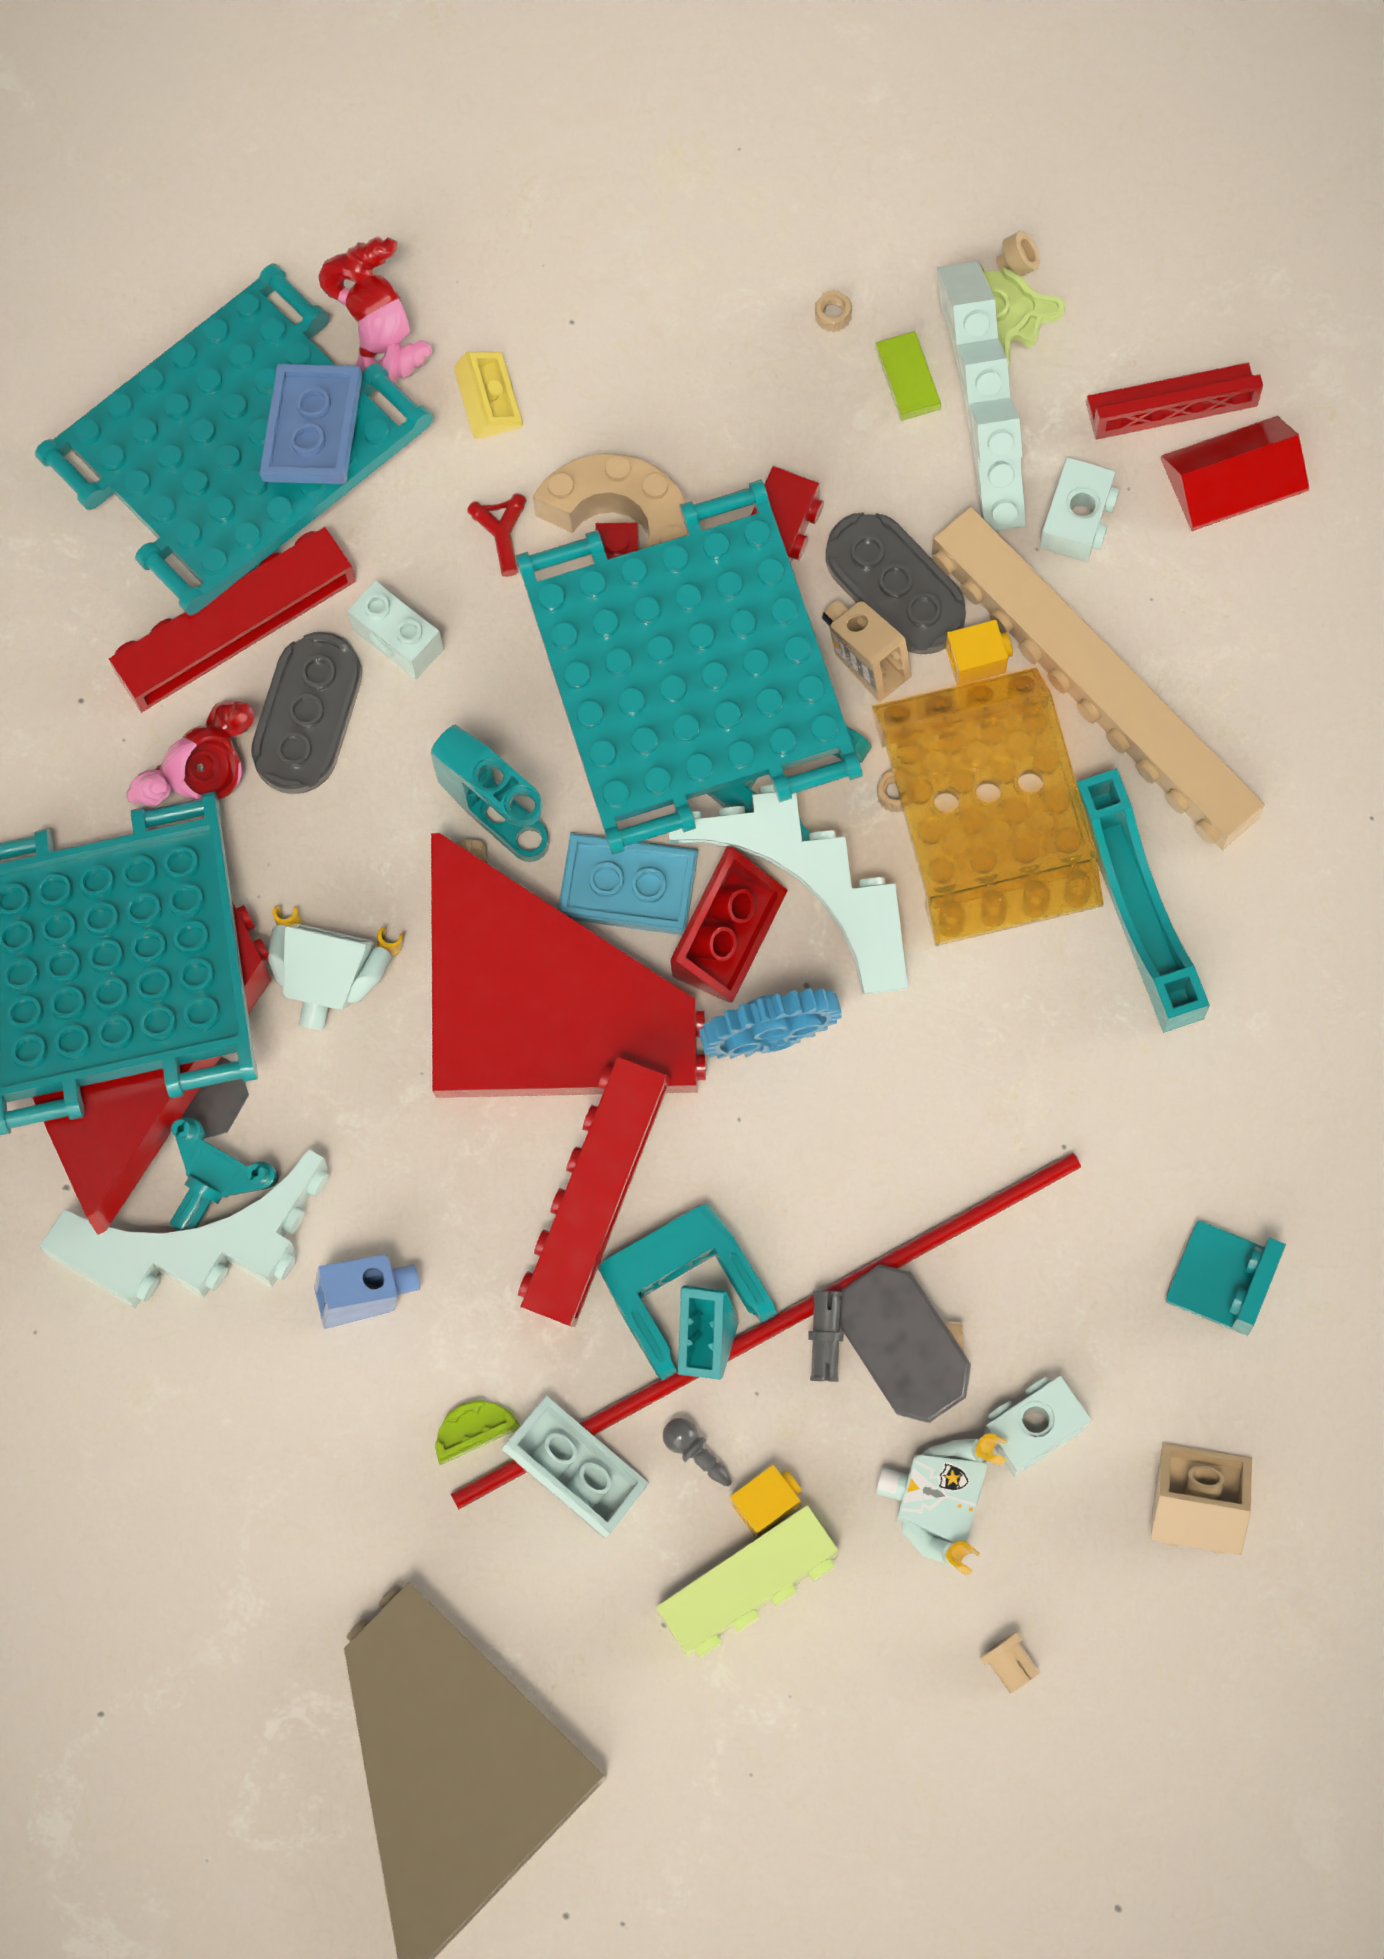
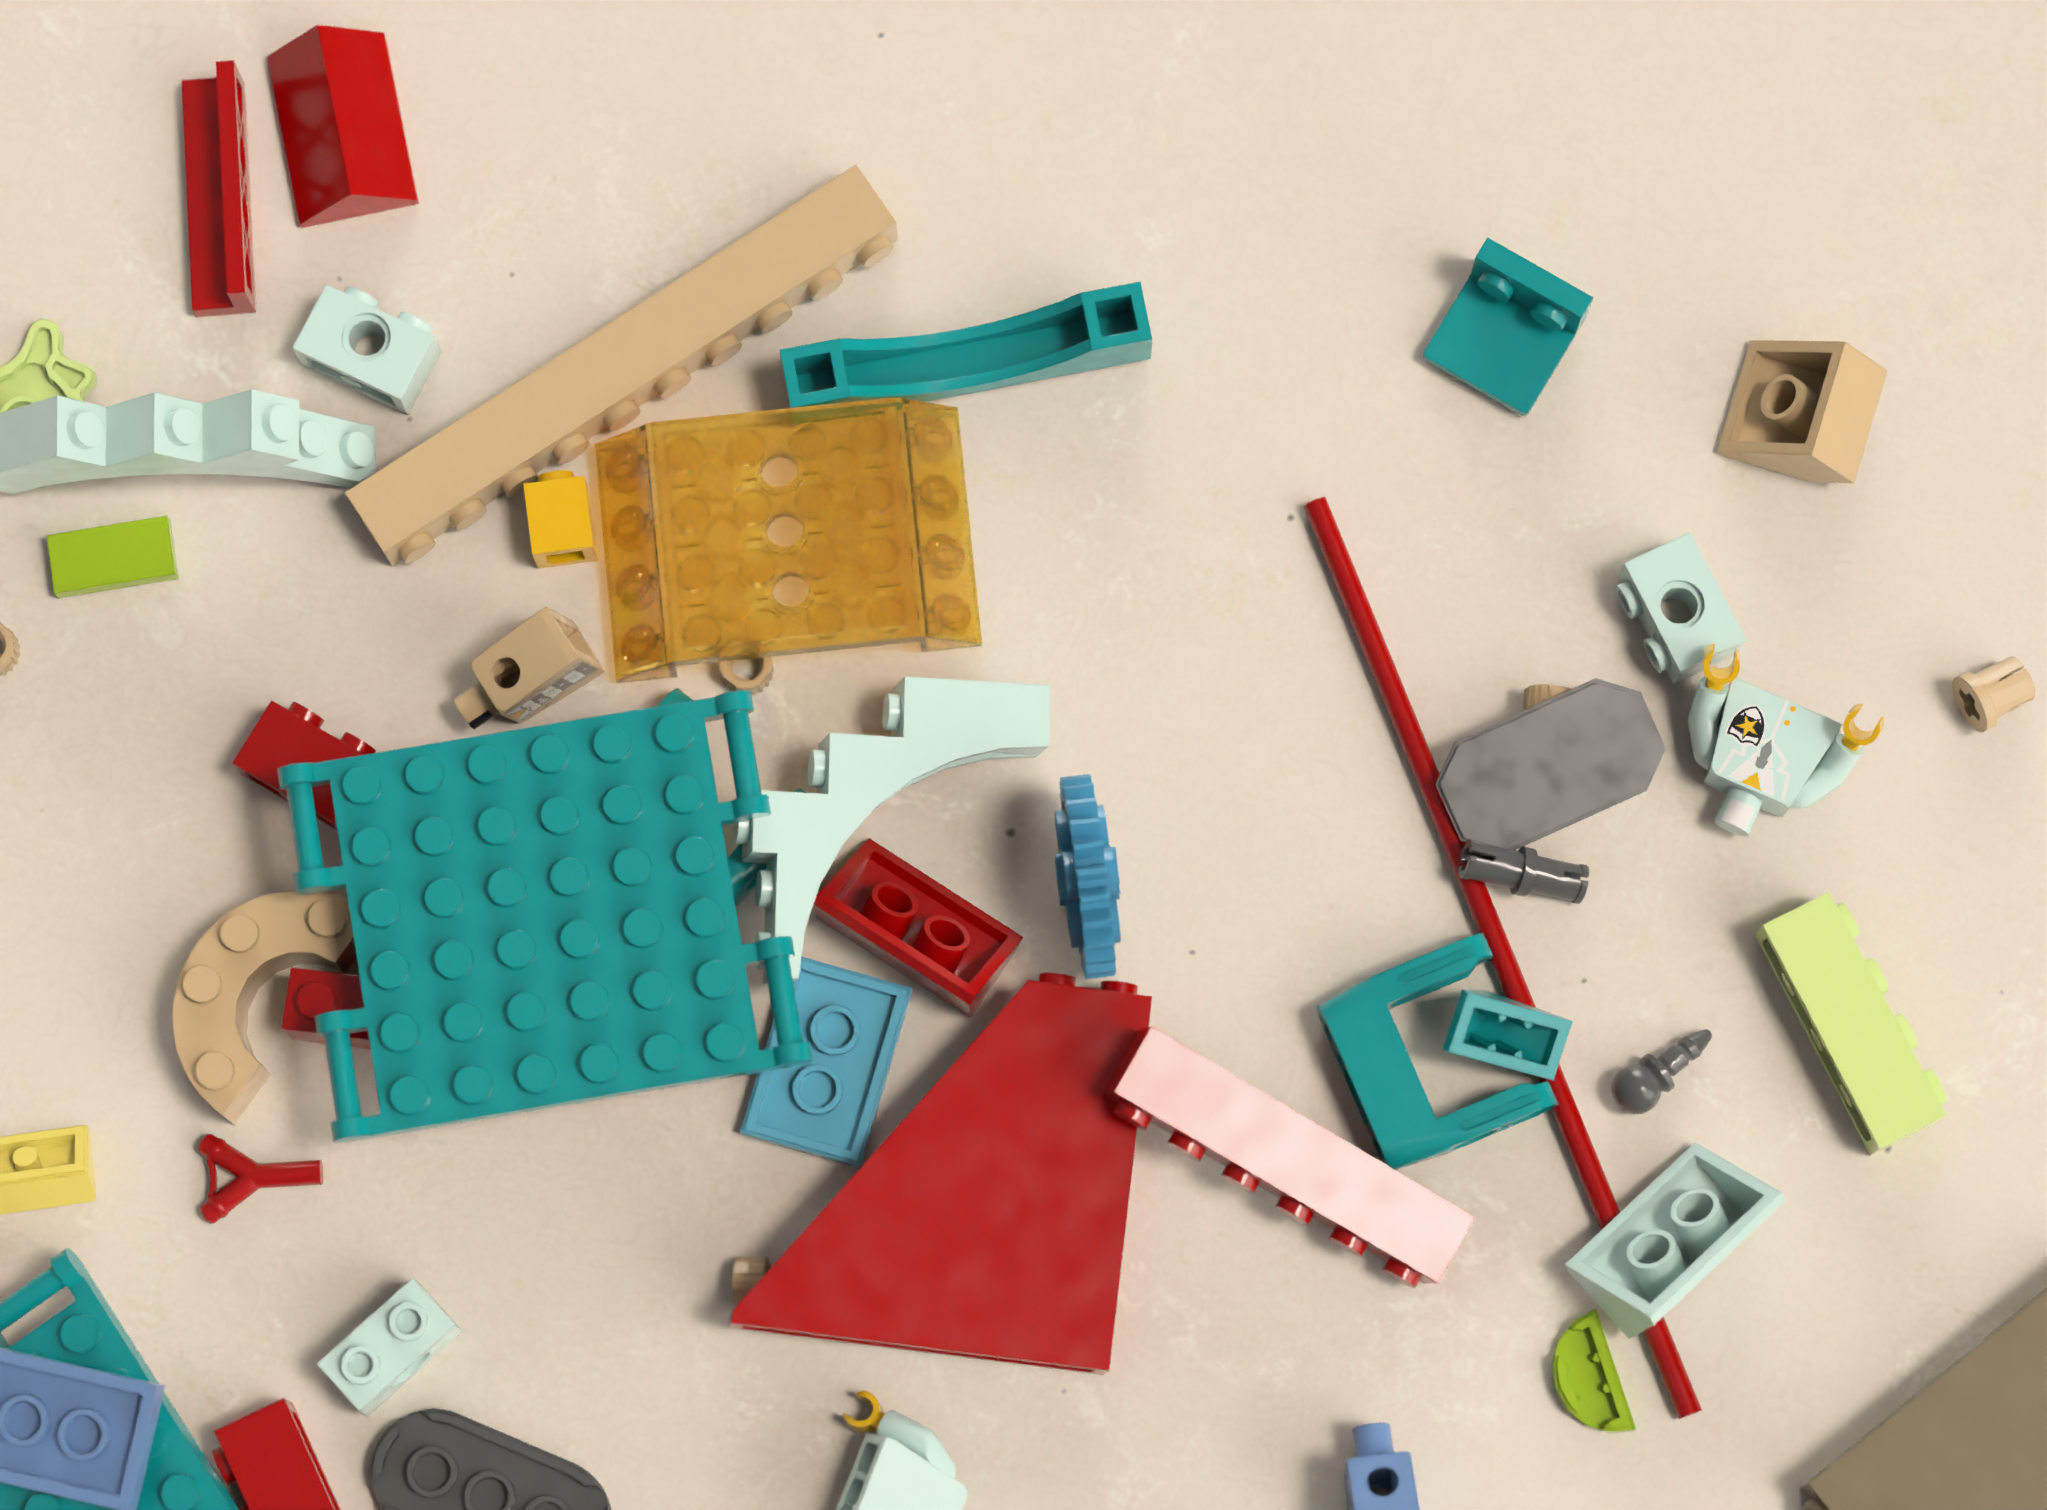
camera: 85 degrees left, 5 degrees up
(466, 773) = (650, 1258): teal connector -> none
(767, 1500) = (1742, 982): yellow brick -> none
(896, 578) = (427, 621): dark grey tile -> none

